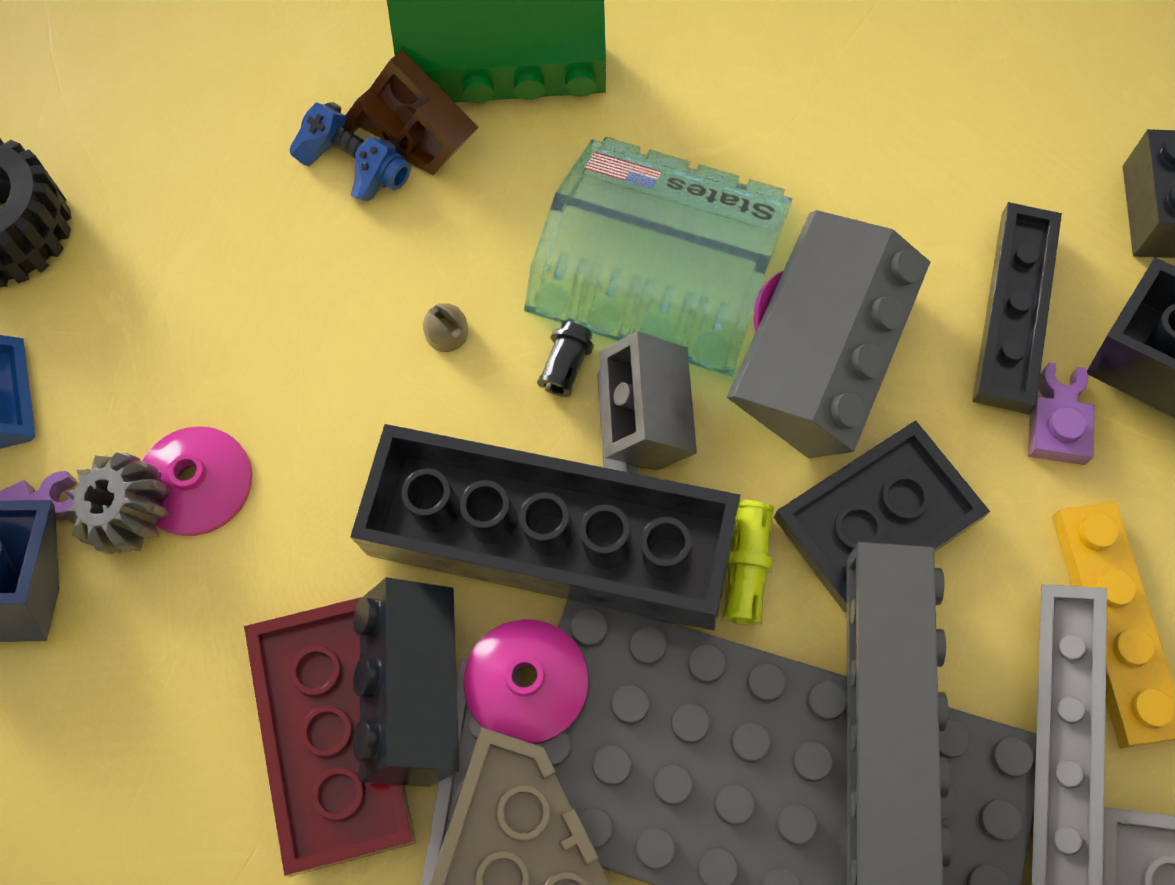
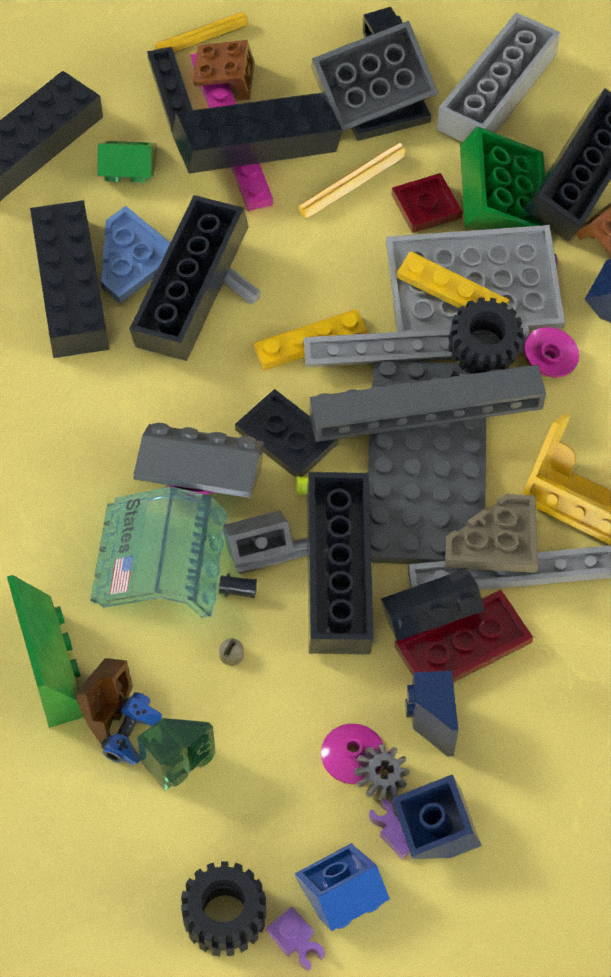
camera: 105 degrees left, 10 degrees down
(180, 617) = (433, 709): none -> dark blue slope
(265, 182) = (175, 749): none -> clear green slope
(533, 711) = (414, 570): dark pink dish -> none
(1017, 309) = (156, 391): black plate -> none
(1058, 423) = (216, 369): medium lavender plate -> none

